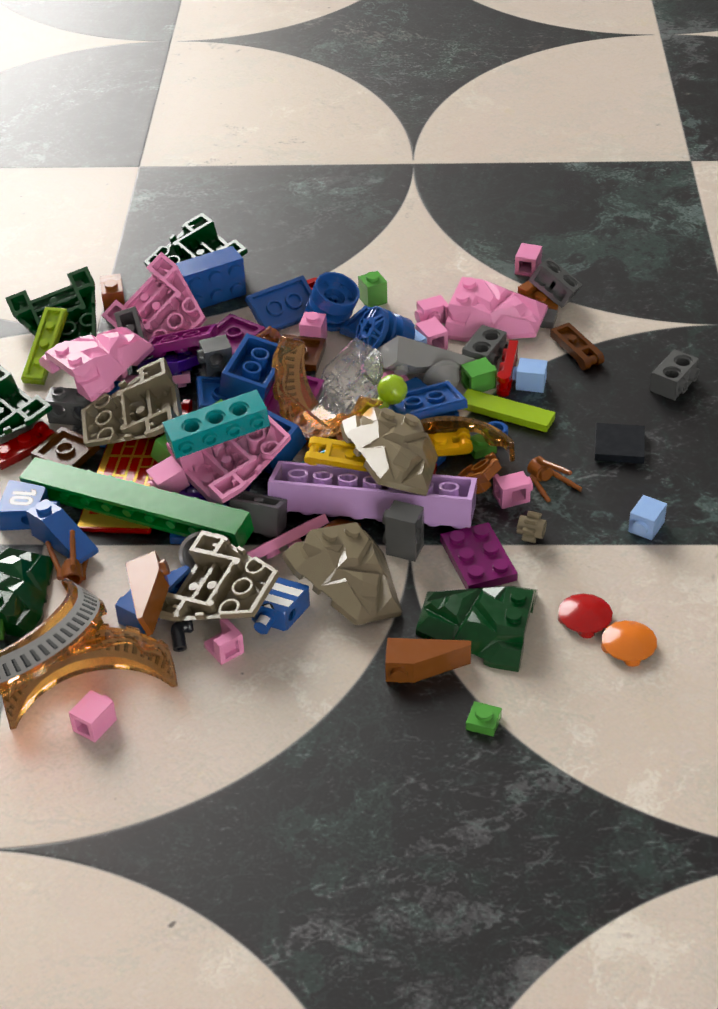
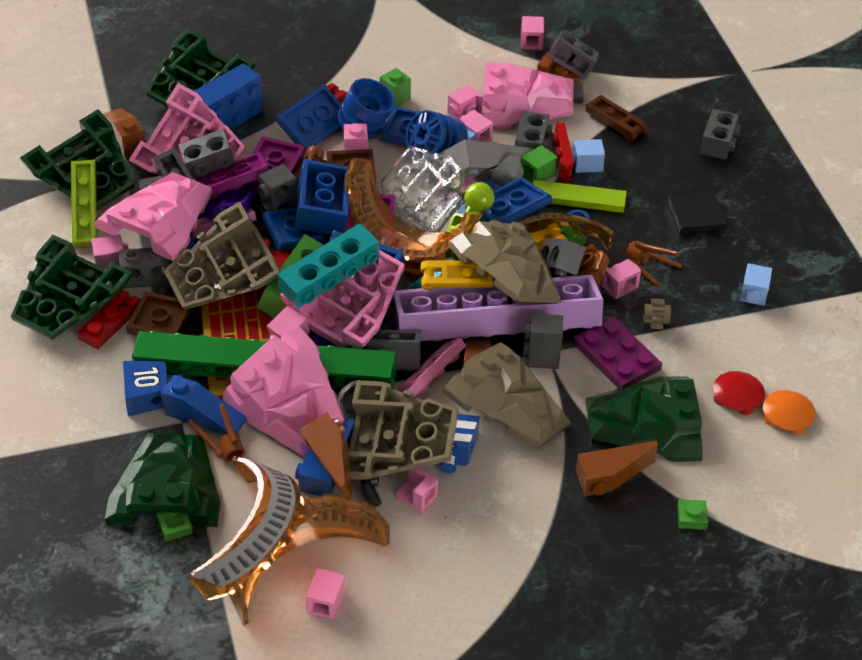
camera: 20 degrees left, 5 degrees up
(42, 383) = (107, 250): none -> bright pink brick
(137, 521) = (284, 389): none -> bright pink wedge
(165, 317) = (207, 153): none -> dark grey brick
(454, 457) = (562, 256): none -> dark grey brick

